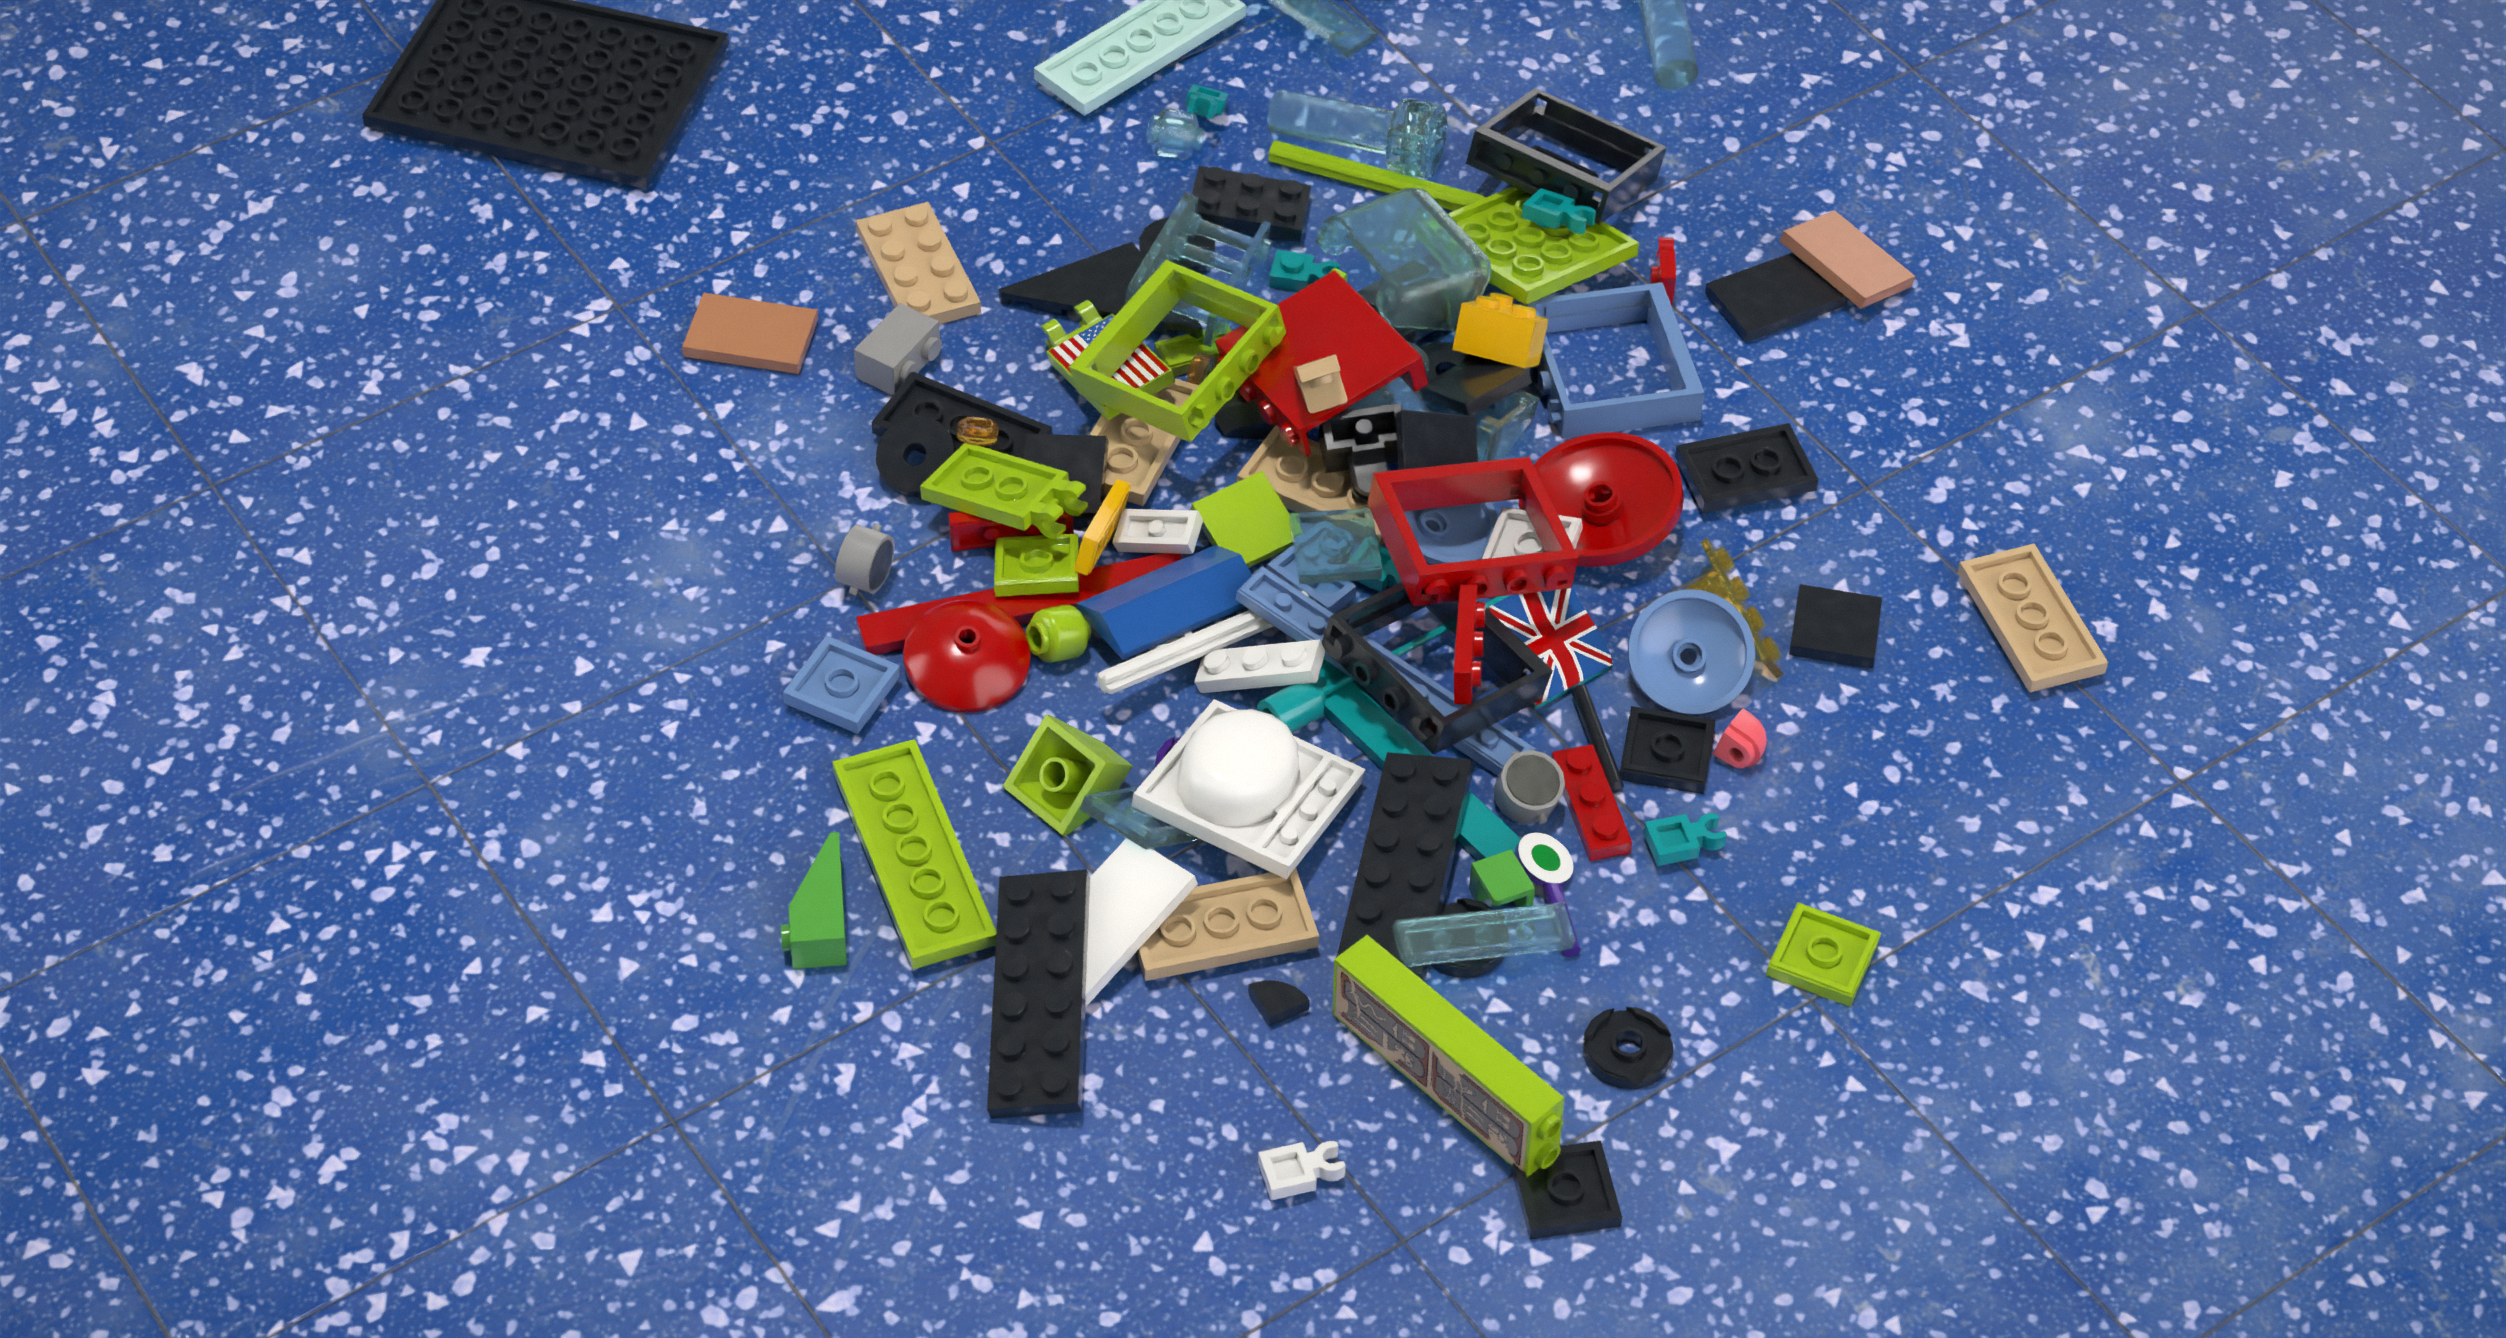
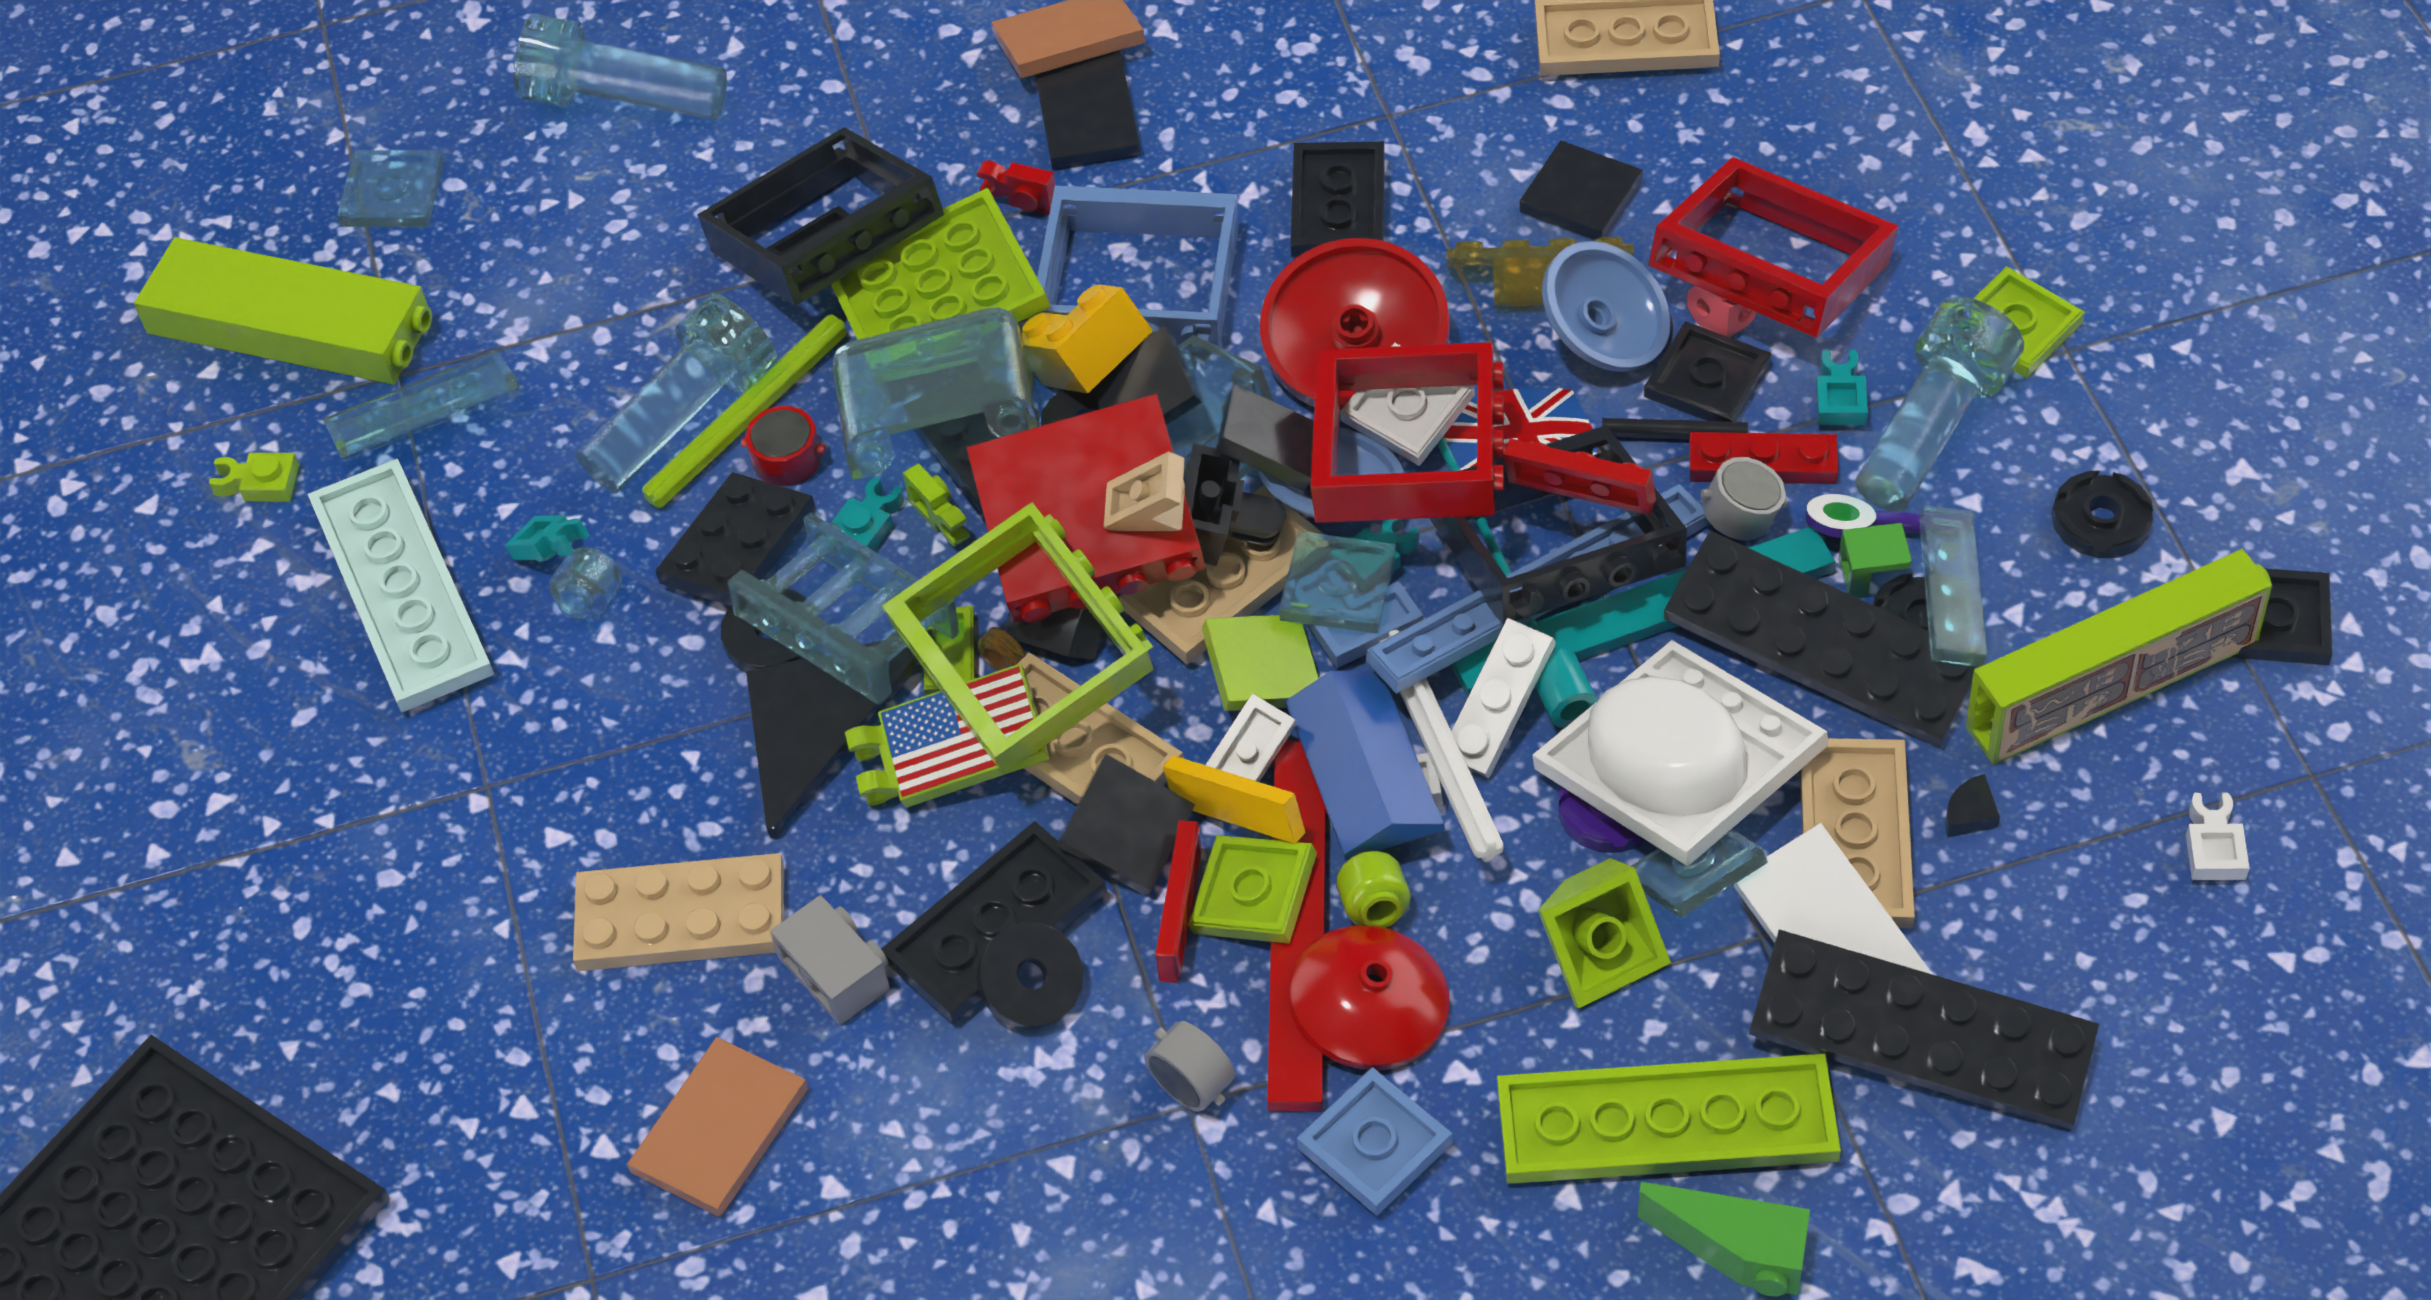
camera: 65 degrees left, 5 degrees up
(977, 431) = (1029, 893): clear orange tile -> none
(1005, 489) = (1145, 883): lime tile -> none
(1343, 193) = (783, 445): none -> piece
(1553, 210) = (916, 243): teal plate -> none
(1737, 901) = (1963, 355): none -> clear light blue piece
(1784, 803) = (1757, 282): none -> red window

